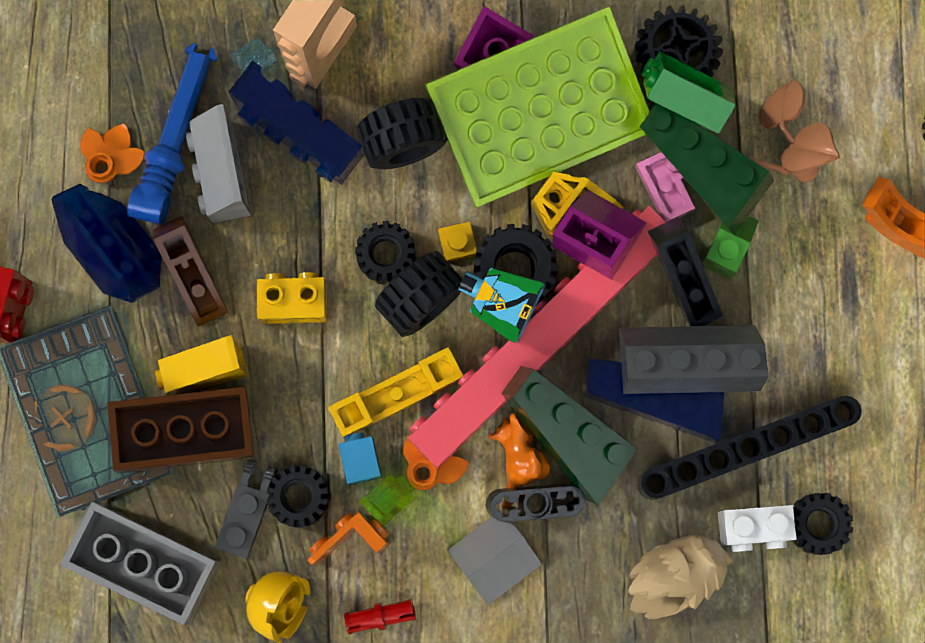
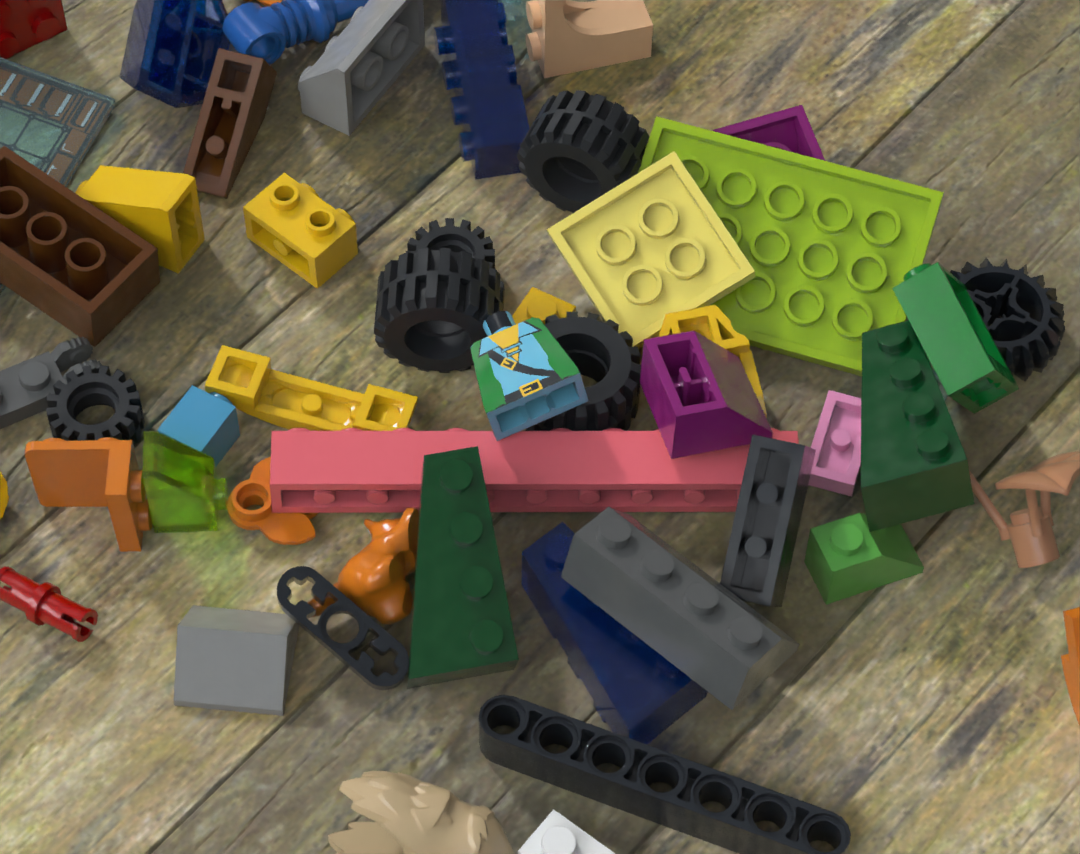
camera: 40 degrees right, 25 degrees down
(490, 165) = (651, 250): none -> light yellow plate

